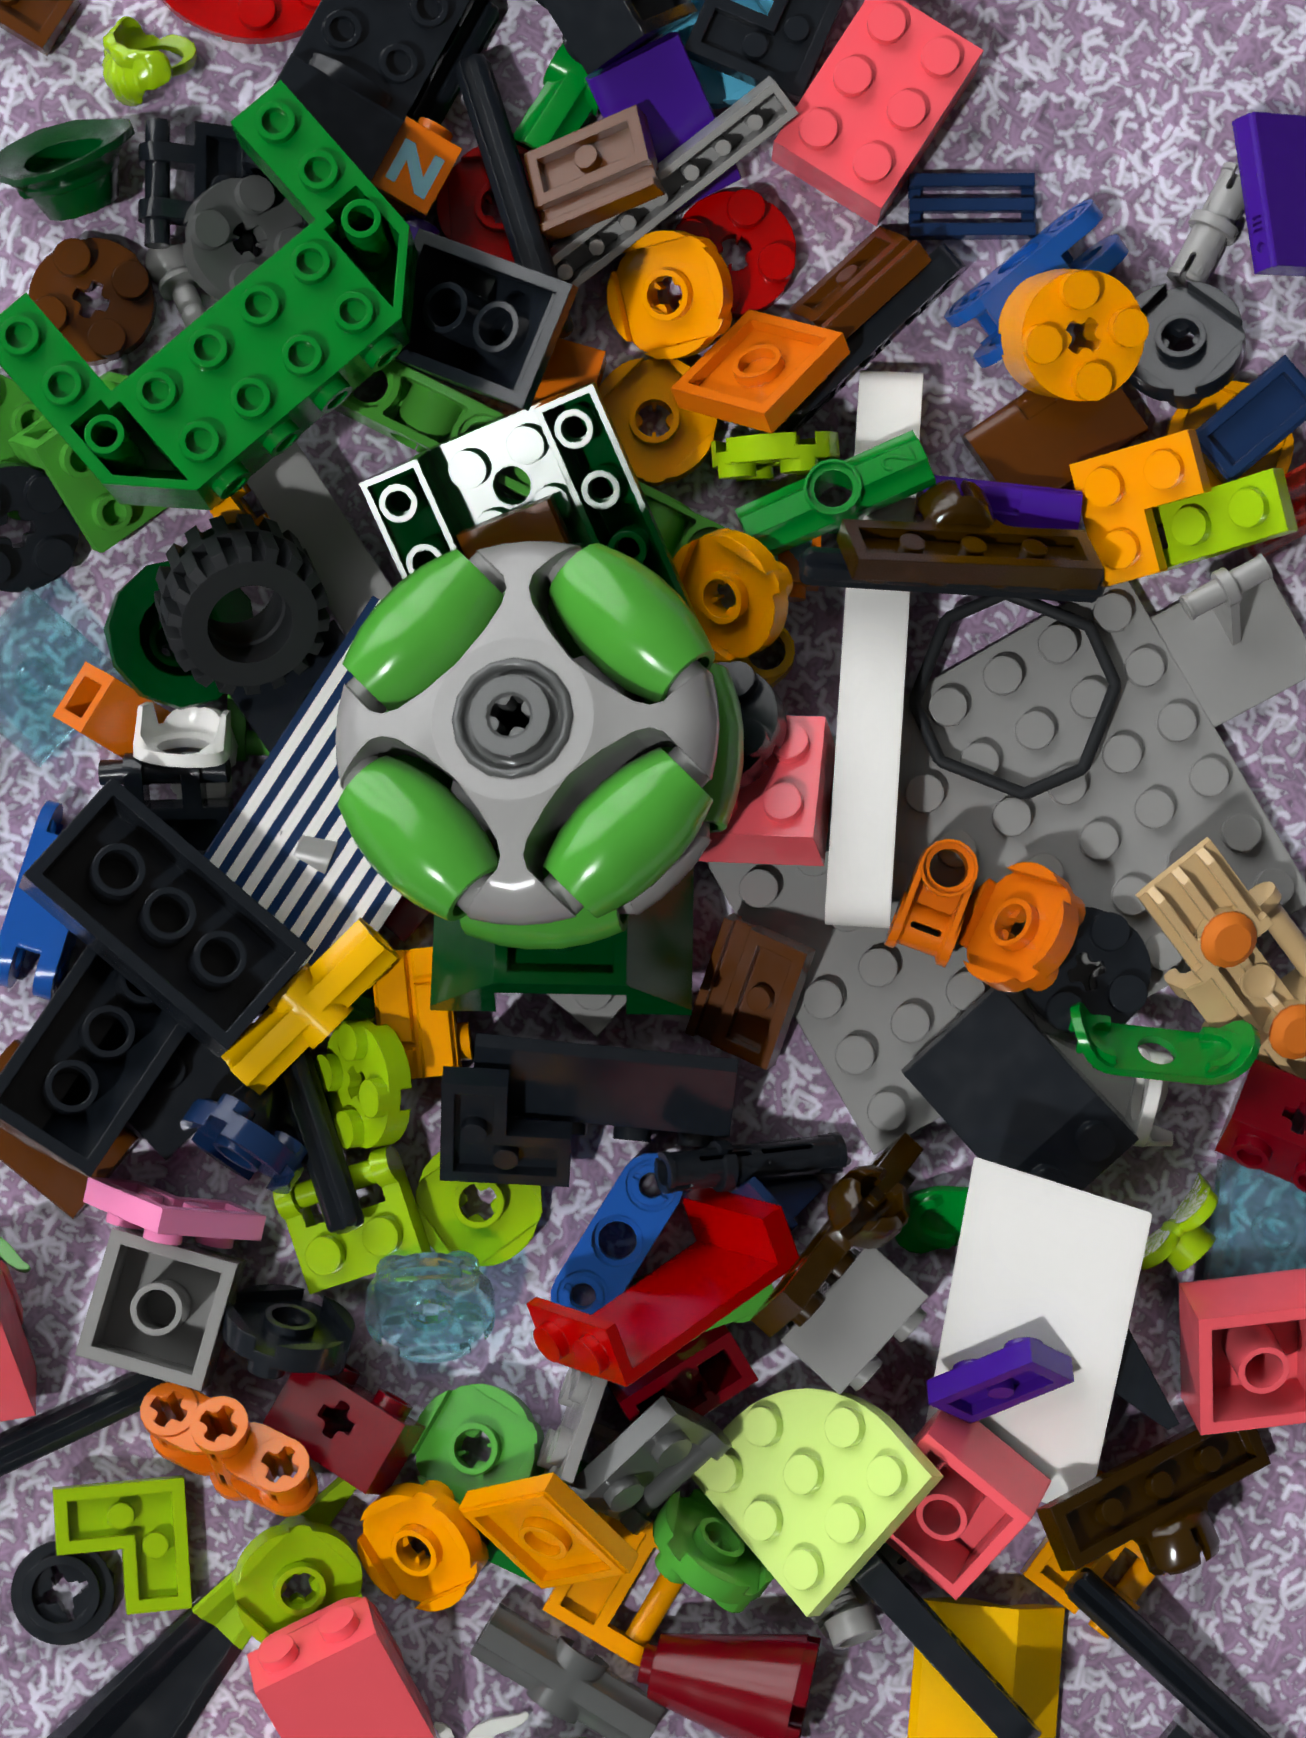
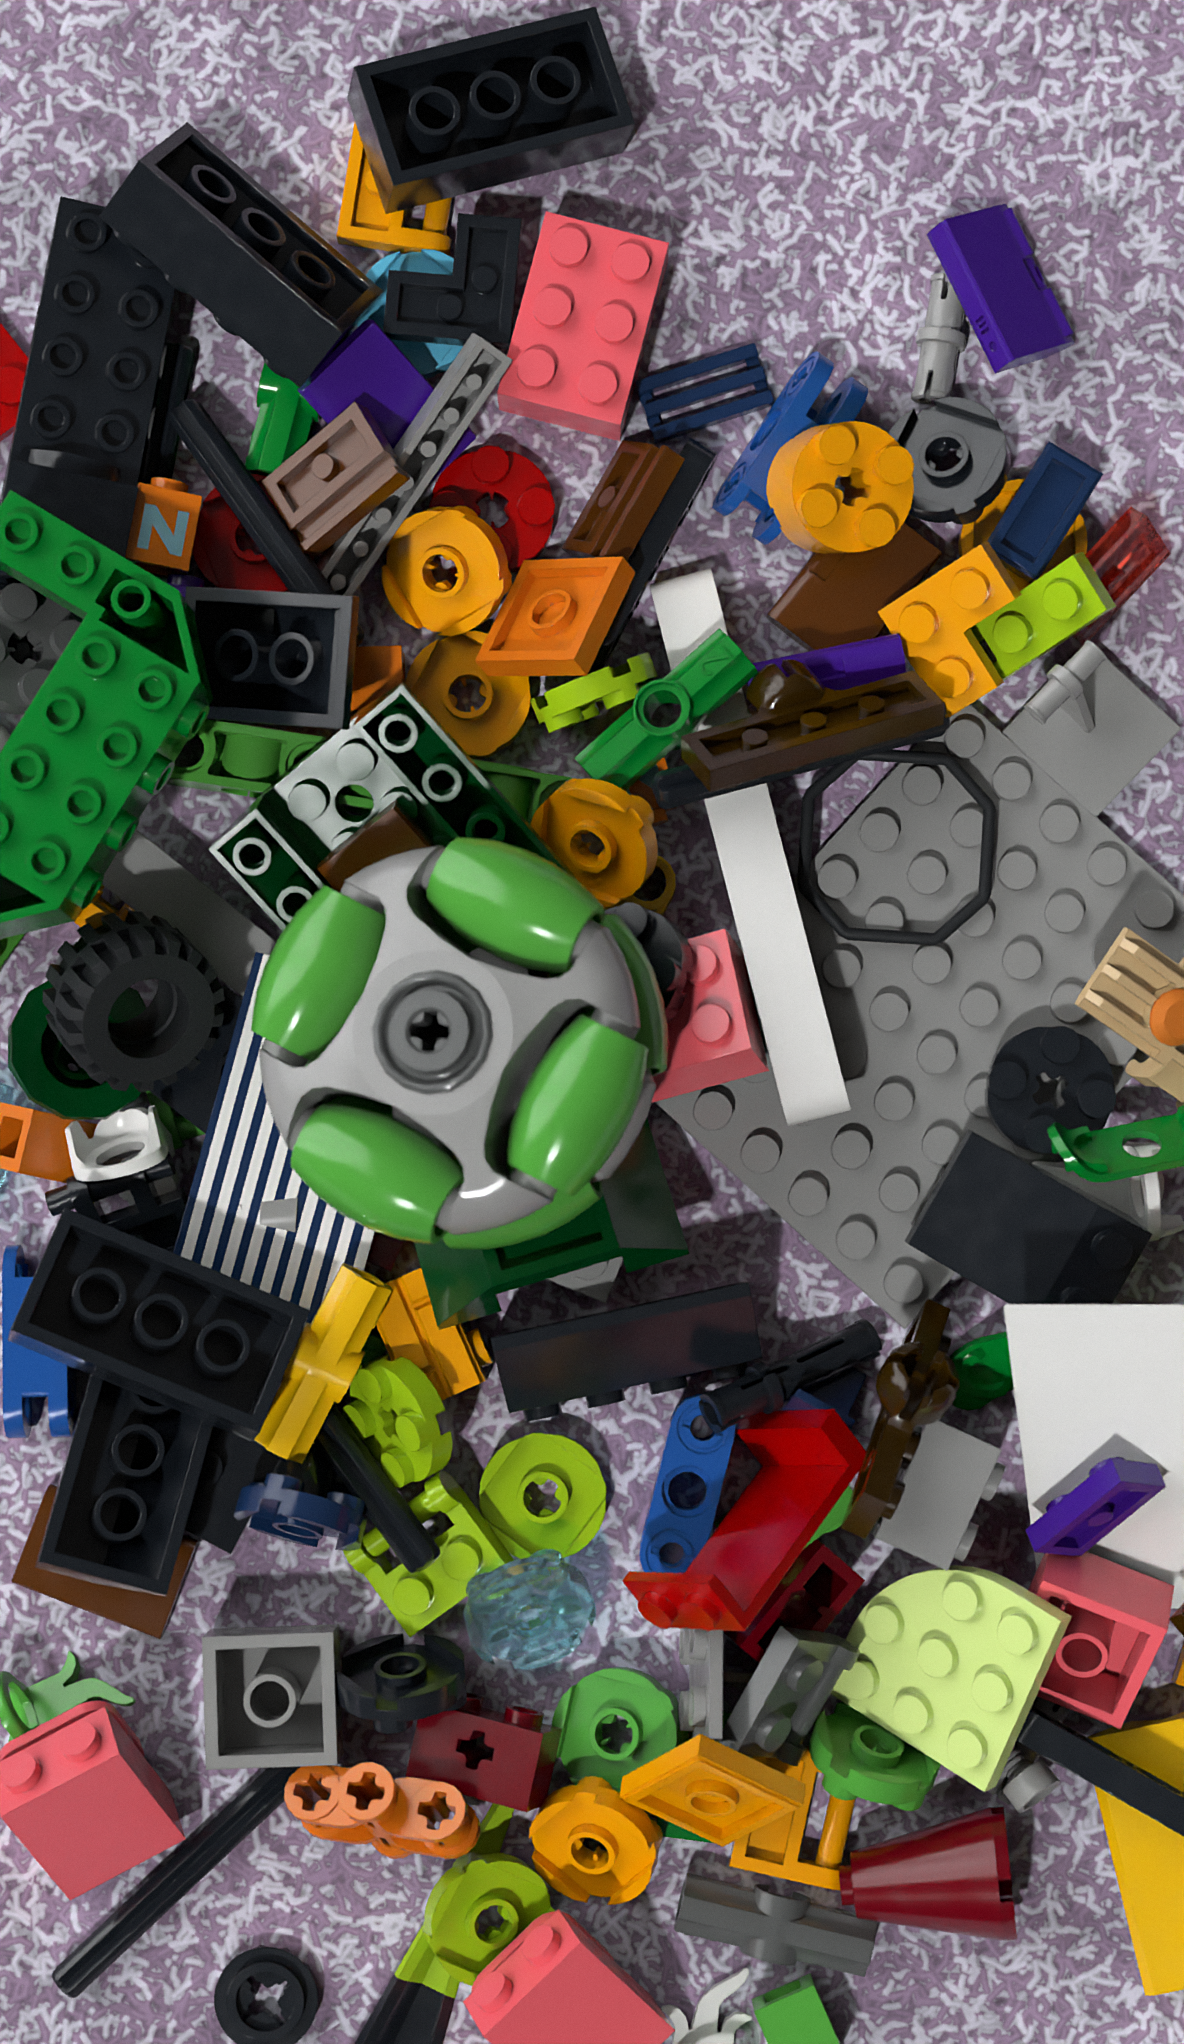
camera: 15 degrees left, 0 degrees up
(141, 1519) = (317, 1906): lime plate -> none
(171, 1217) = (255, 1607): bright pink plate -> none
(488, 1146) = (538, 1441): black plate -> none
(750, 991) = (736, 1211): reddish brown plate -> none
(933, 905) = (885, 1073): orange piece -> none
(1036, 953) = (1002, 1076): orange plate -> none

